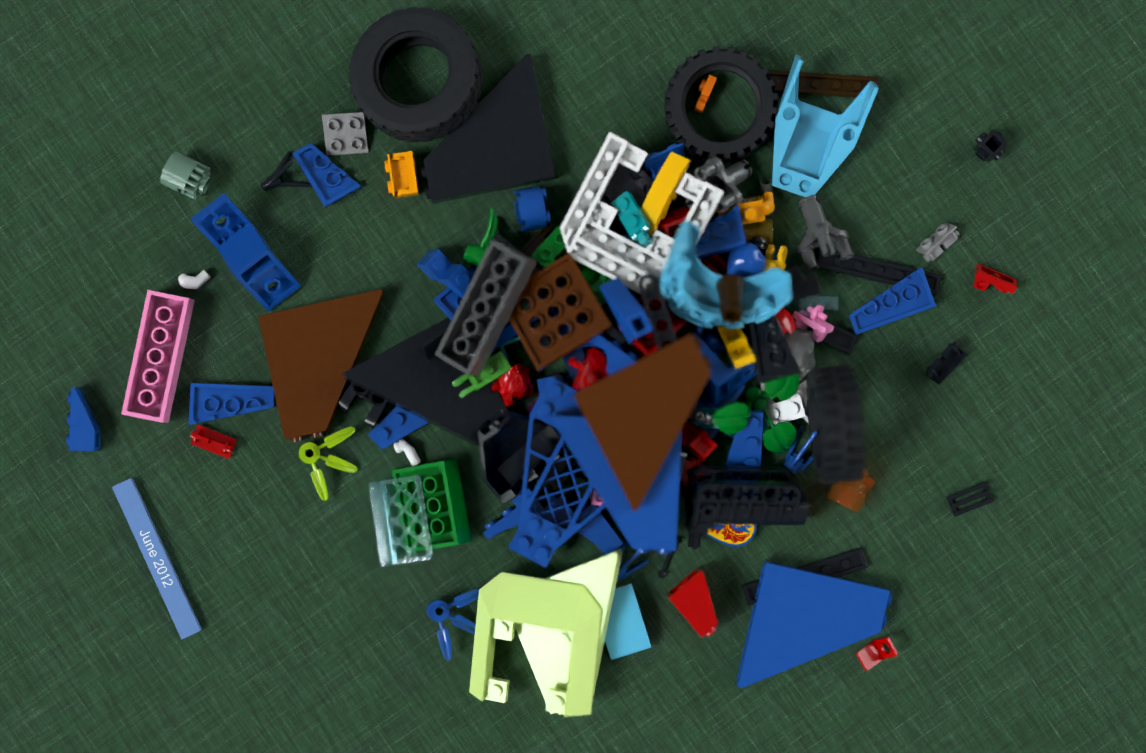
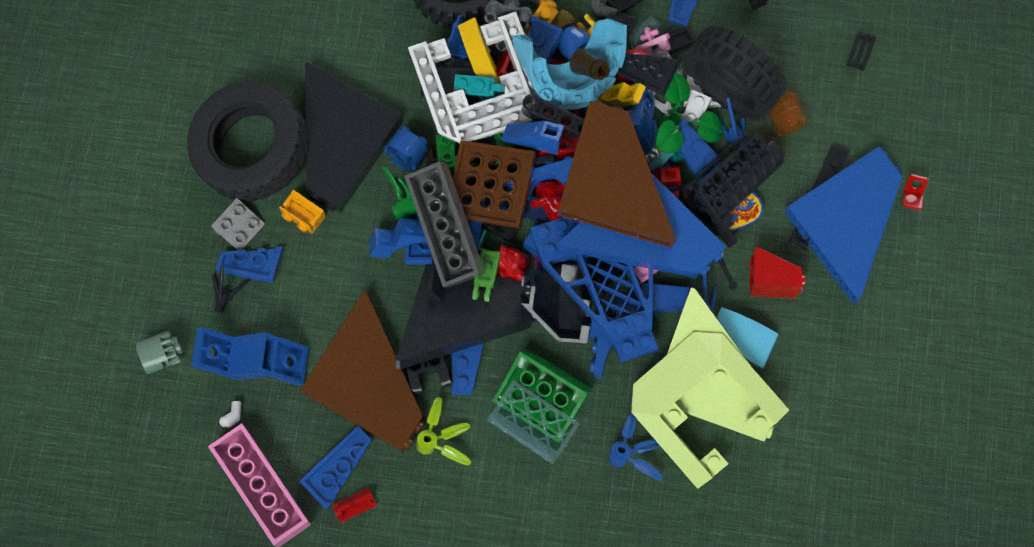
camera: 50 degrees left, 15 degrees down
(410, 452) = (488, 375): white arm -> none

